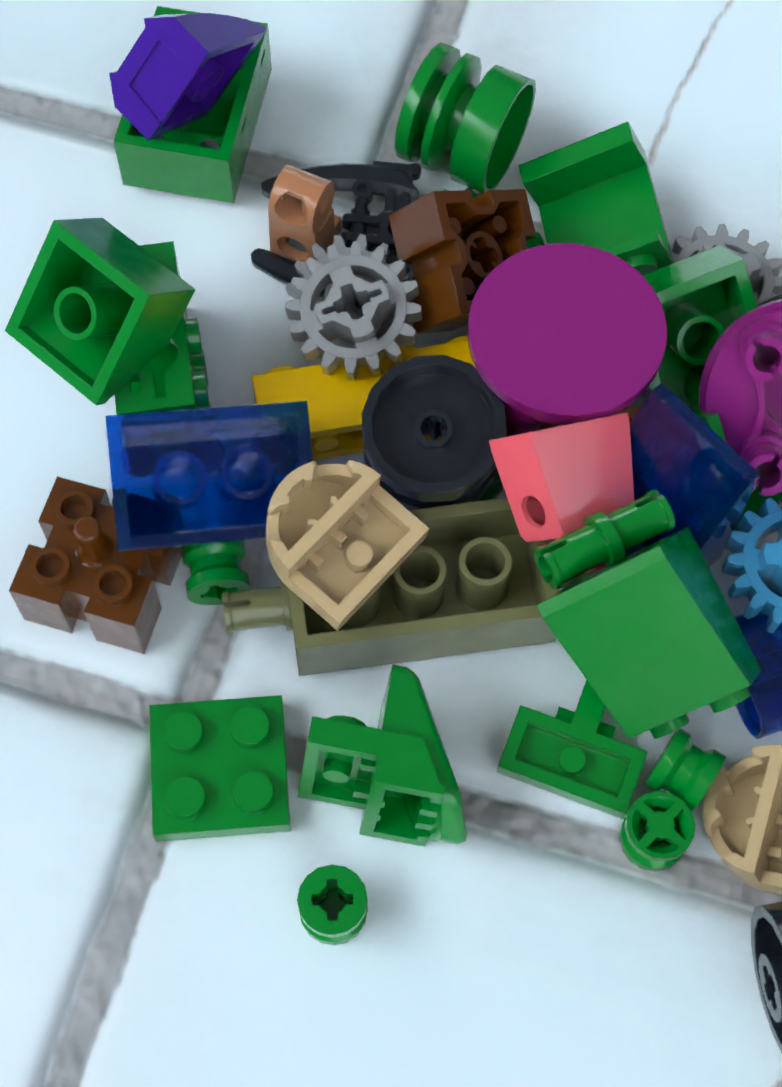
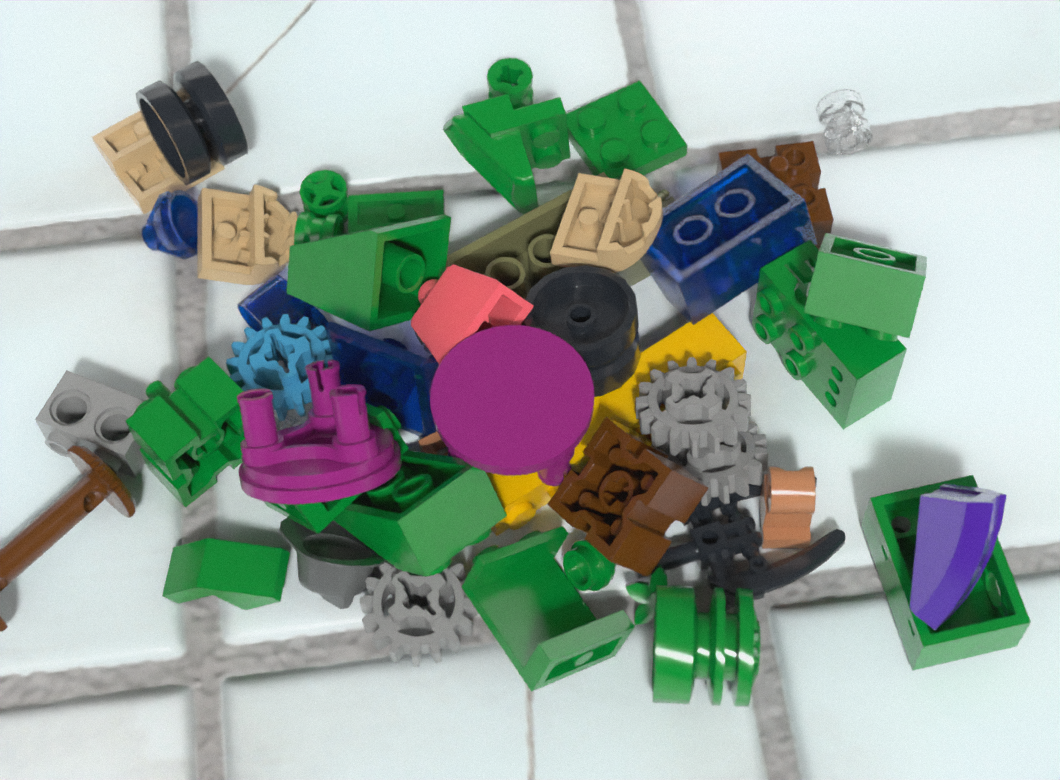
camera: 160 degrees right, 5 degrees down
(604, 538) = (422, 272): green pin -> none

